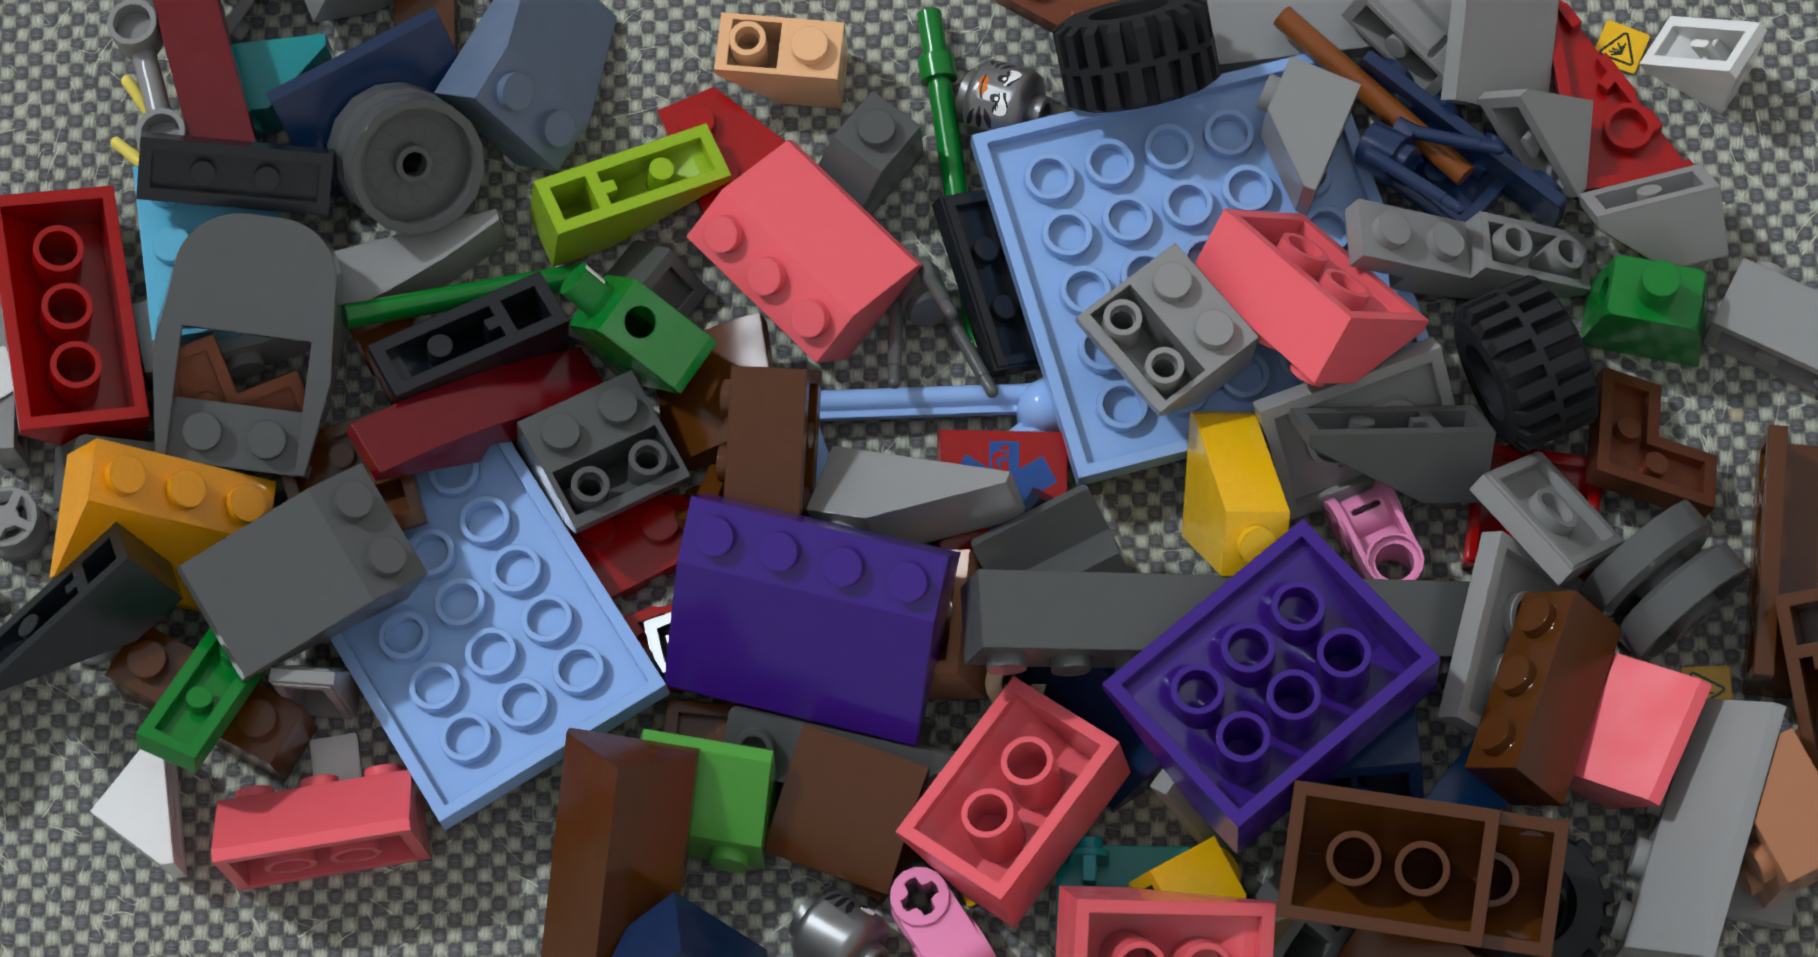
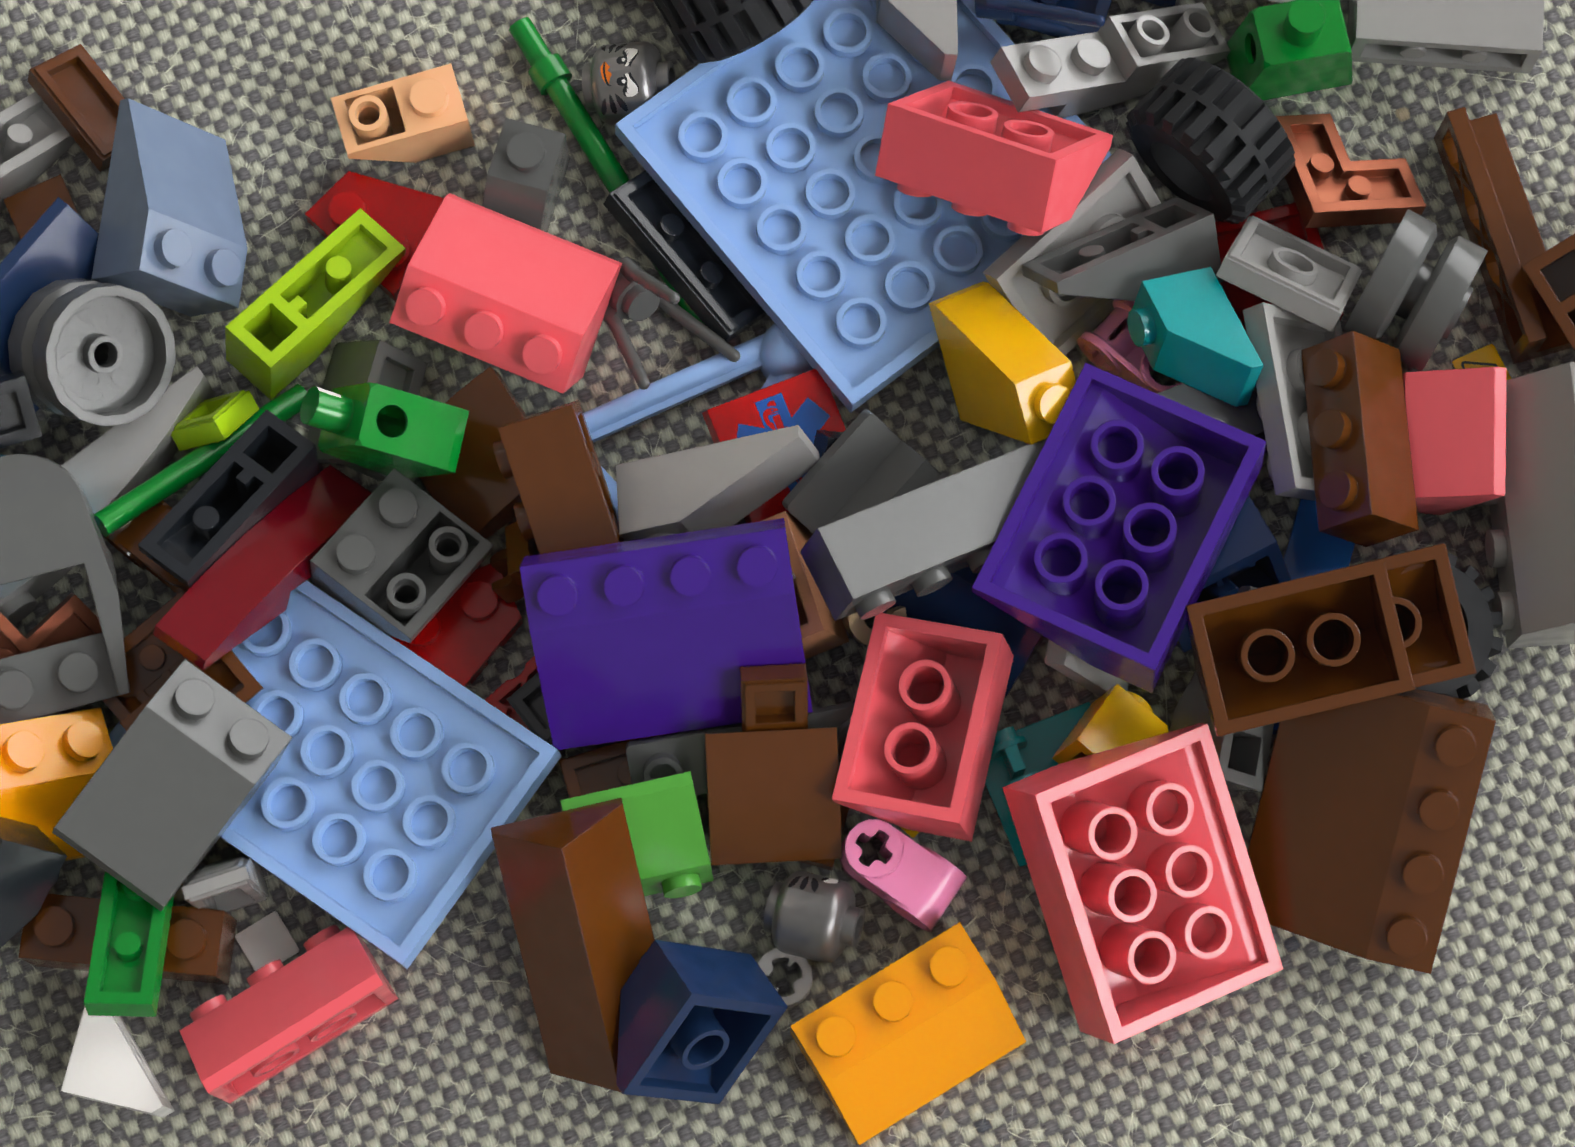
camera: 30 degrees left, 5 degrees up
(492, 264) = (214, 420): none -> lime tile
(881, 715) = (774, 697): none -> reddish brown tile
(1170, 333) = (883, 237): light grey slope -> none
(1426, 537) = (1195, 335): none -> teal slope

